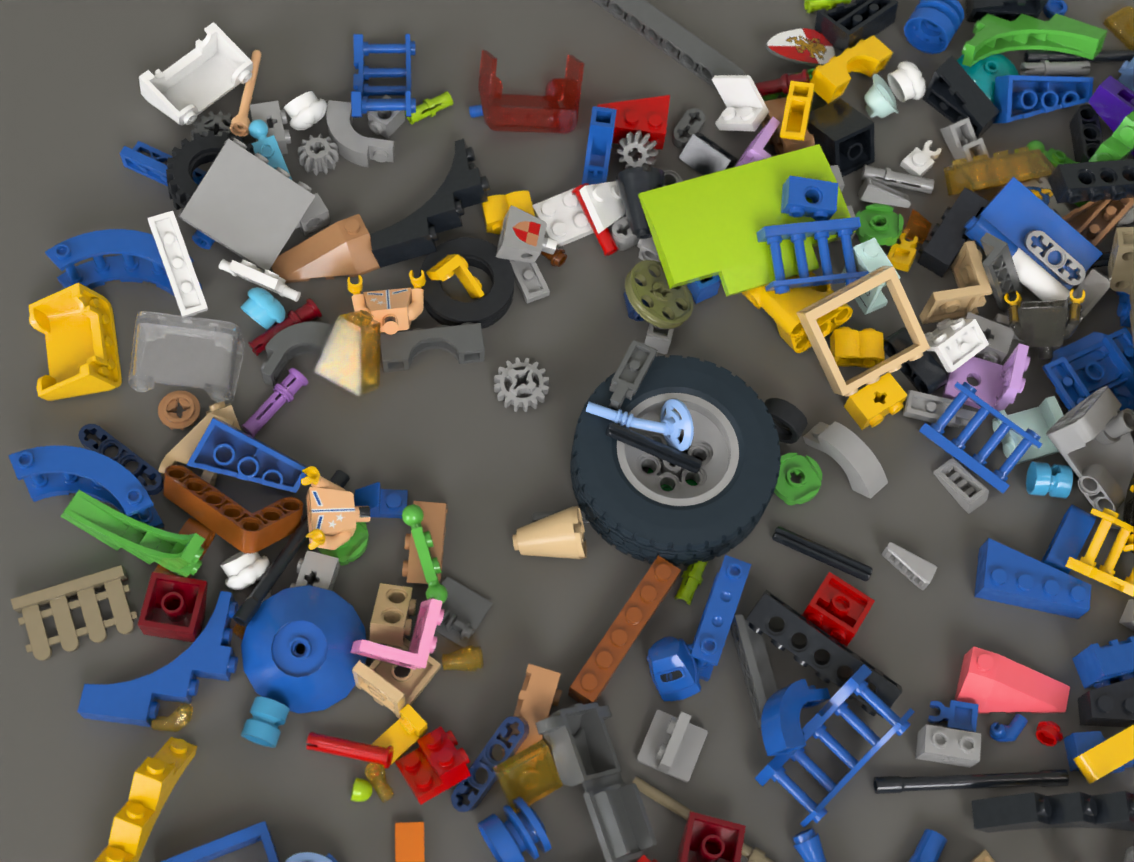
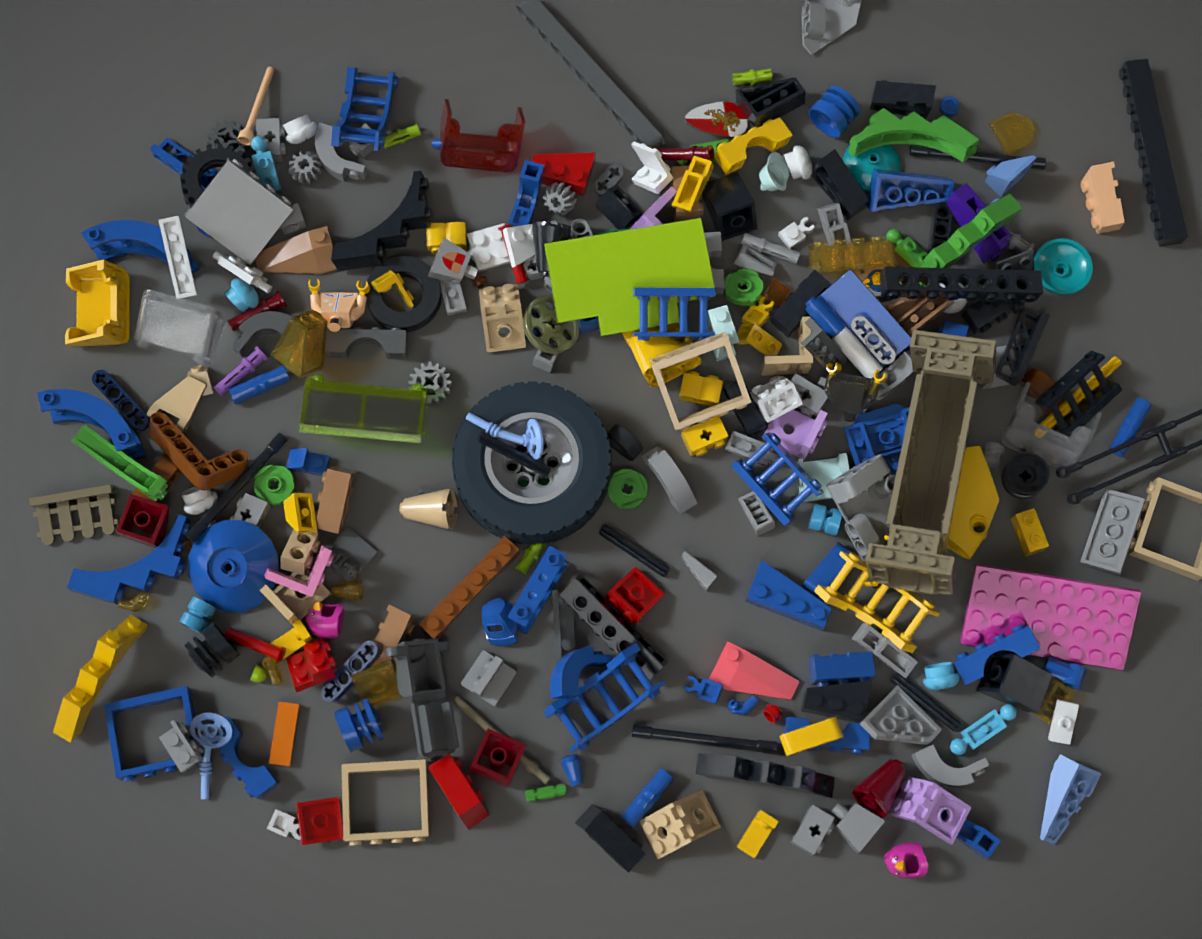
camera: 15 degrees right, 10 degrees up
(169, 405) = (162, 362): medium nougat gear -> none
(197, 78) = (218, 91): white windscreen -> none
(239, 455) = (210, 415): blue wedge -> none
(293, 765) = (211, 650): none -> black wheel
(301, 415) = (259, 385): none -> blue axle
(330, 512) = (266, 467): light nougat torso -> none
(384, 564) = (300, 512): none -> yellow slope
(413, 516) = (328, 502): bright green plate -> none
(441, 701) = (325, 620): none -> dark pink piece
(446, 423) = (364, 410): none -> windscreen
(594, 284) = (502, 309): none -> tan bracket
(631, 373) = (506, 393): dark grey hinge -> none
(821, 192) = (690, 263): blue brick -> none
(914, 280) = (759, 339): none -> yellow bracket
(948, 746) = (692, 711): light grey brick -> none
(1048, 68) = (931, 164): light grey pin -> none

